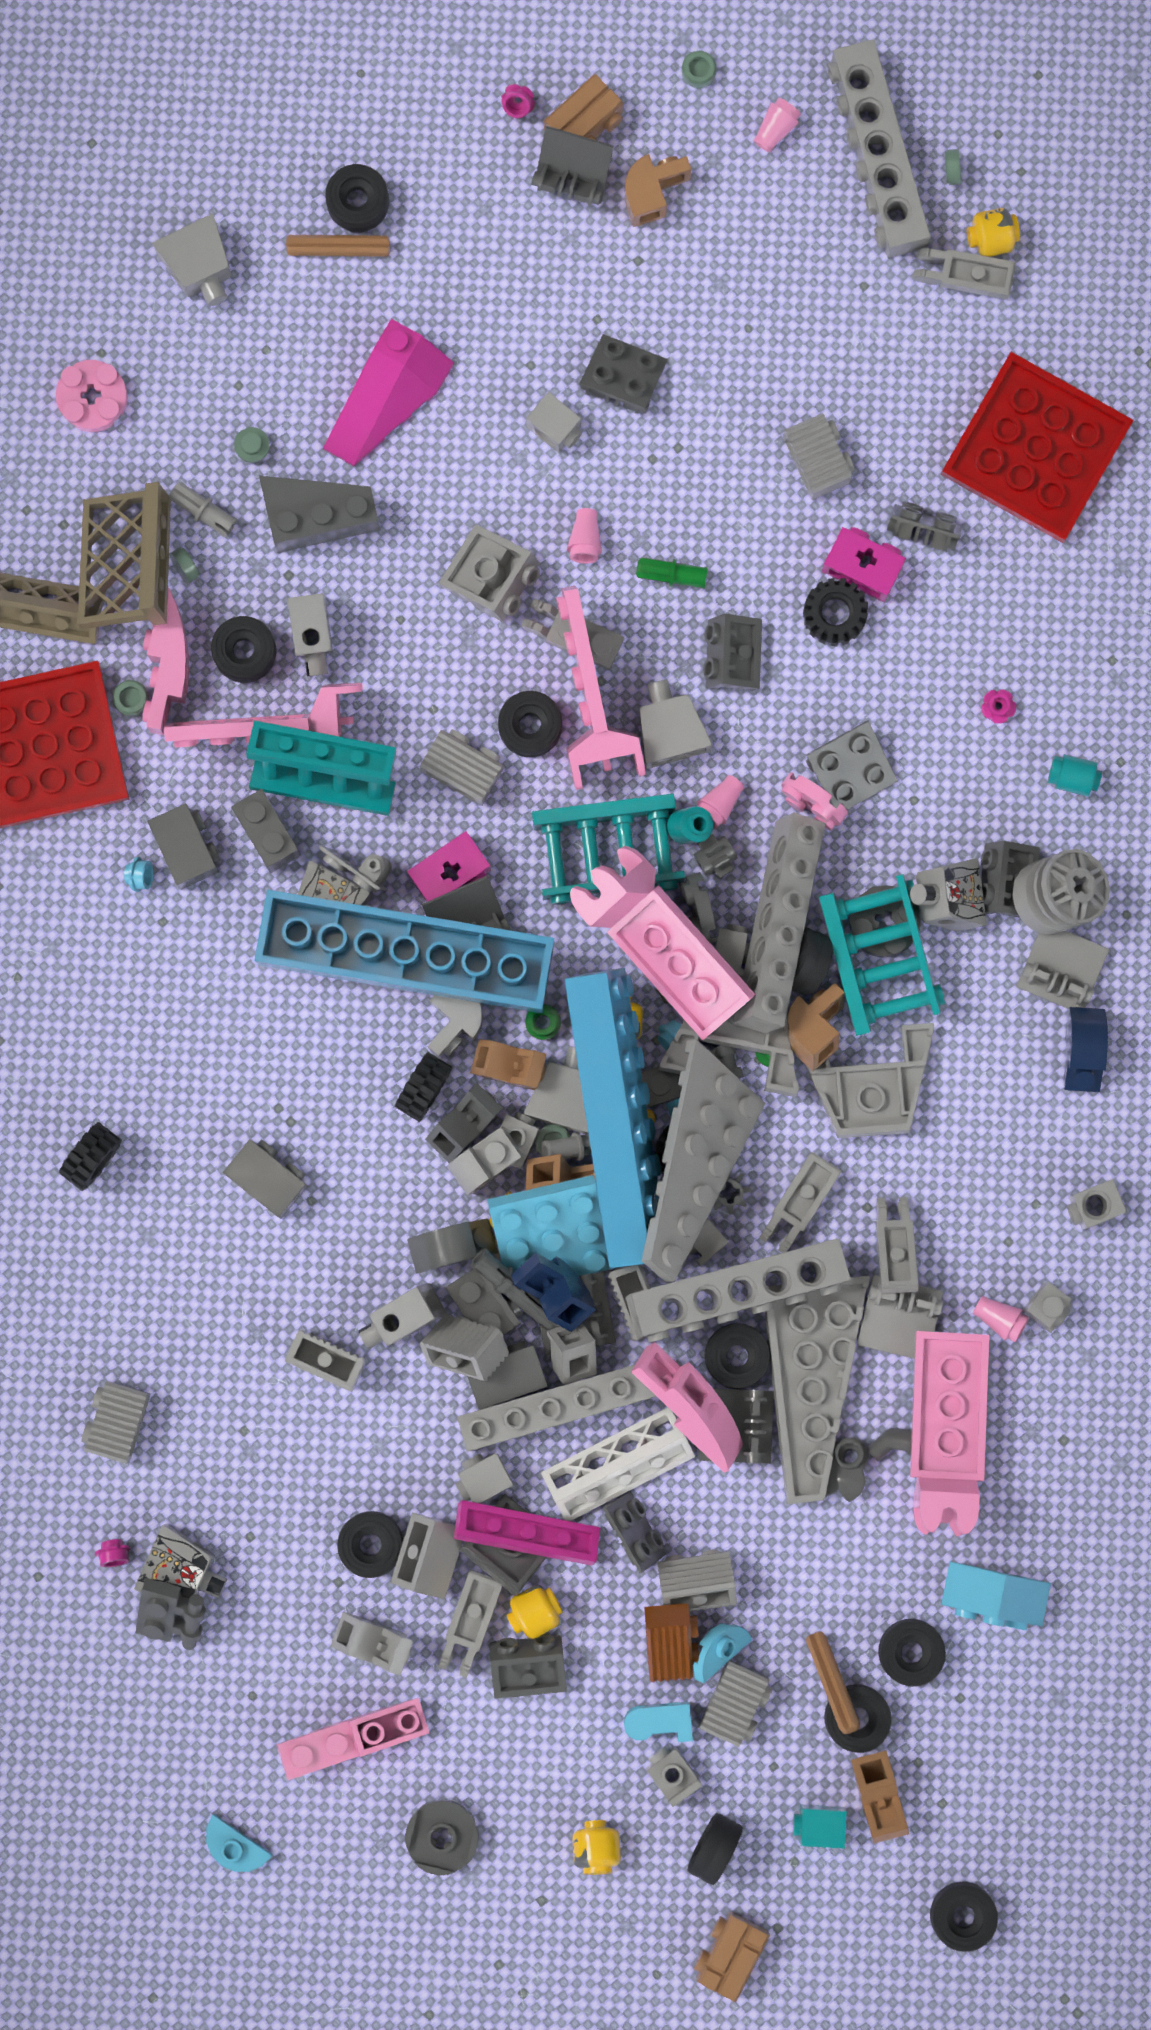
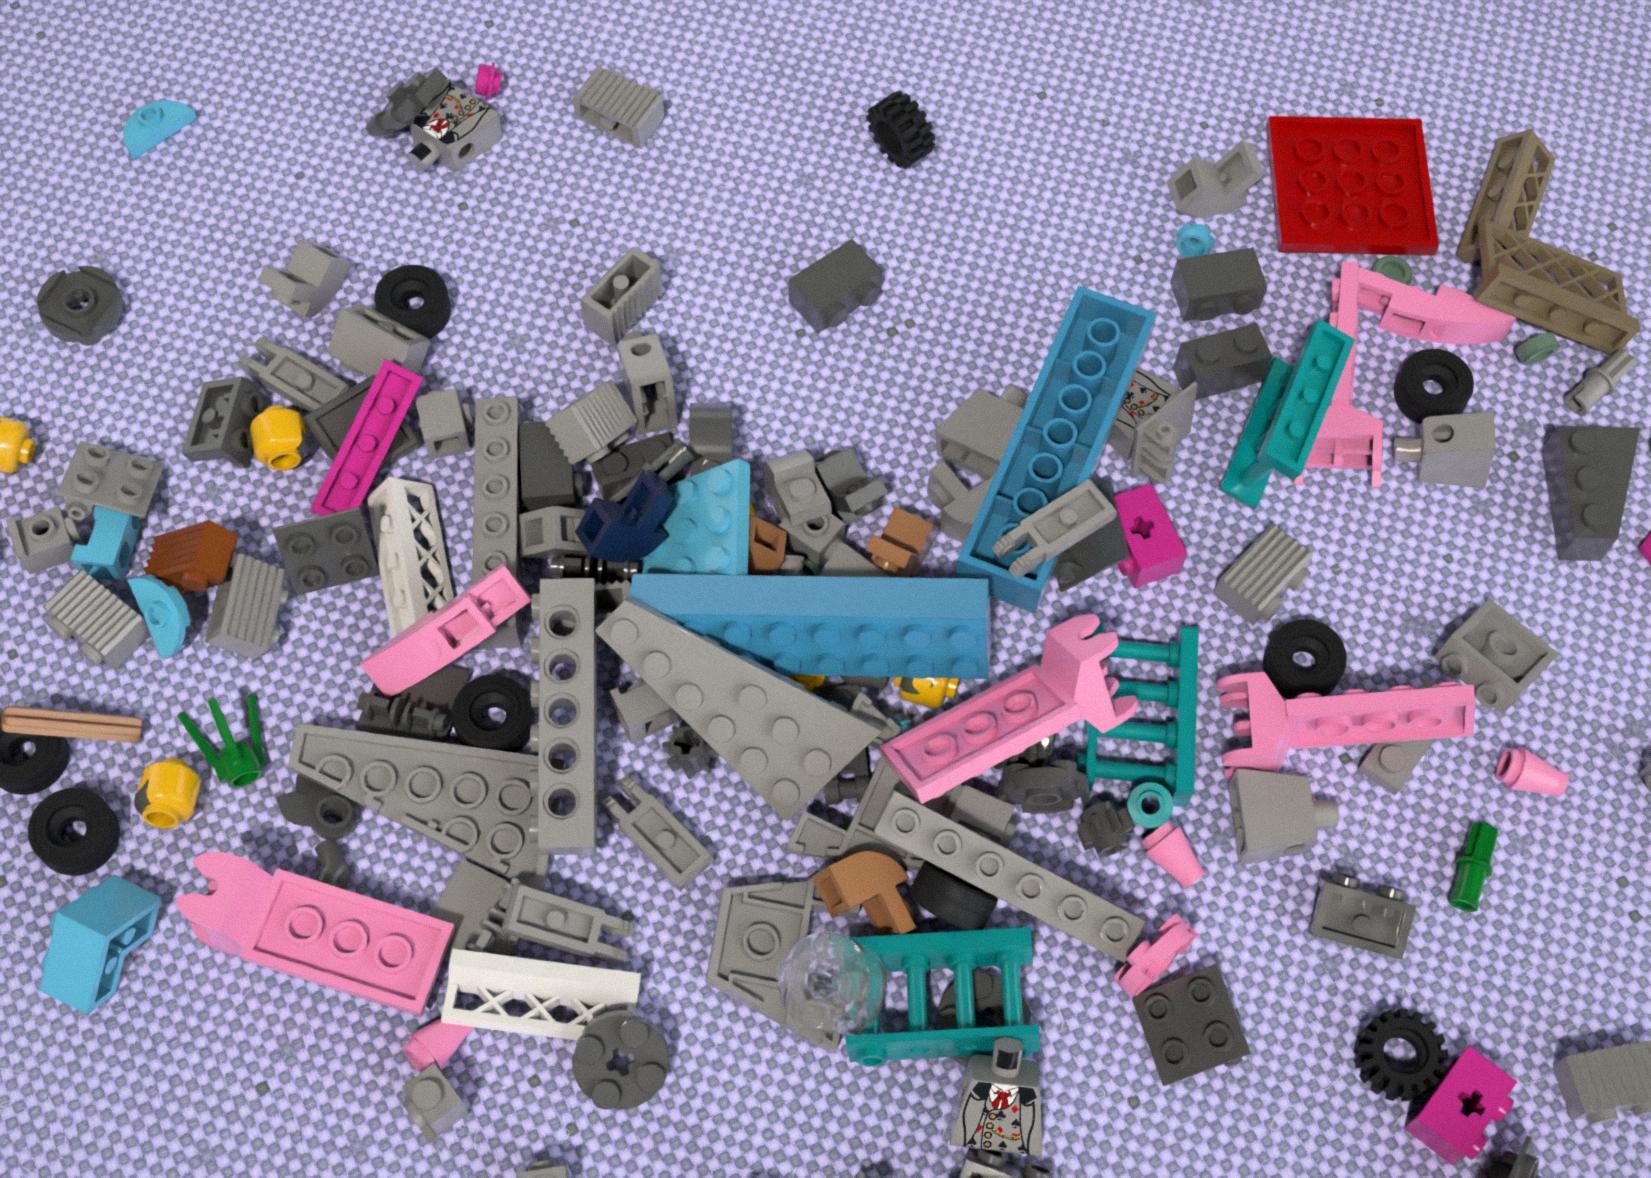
camera: 100 degrees right, 20 degrees down
(78, 865) = (1217, 188): none -> light grey brick
(352, 1738) = (217, 240): bright pink slope -> none
(383, 1016) = (980, 430): none -> light grey torso
(423, 1086) = (898, 449): black tyre -> none
(499, 933) = (1056, 527): none -> light grey hinge
(612, 1736) = (108, 481): none -> light grey hinge
(824, 1544) = (239, 763): none -> green plant
(864, 1590) = (167, 793): none -> yellow head
(916, 1043) = (806, 981): none -> clear brick
(942, 1251) = (535, 984): none -> white fence
(1002, 1174) = (608, 1085): none -> dark grey plate

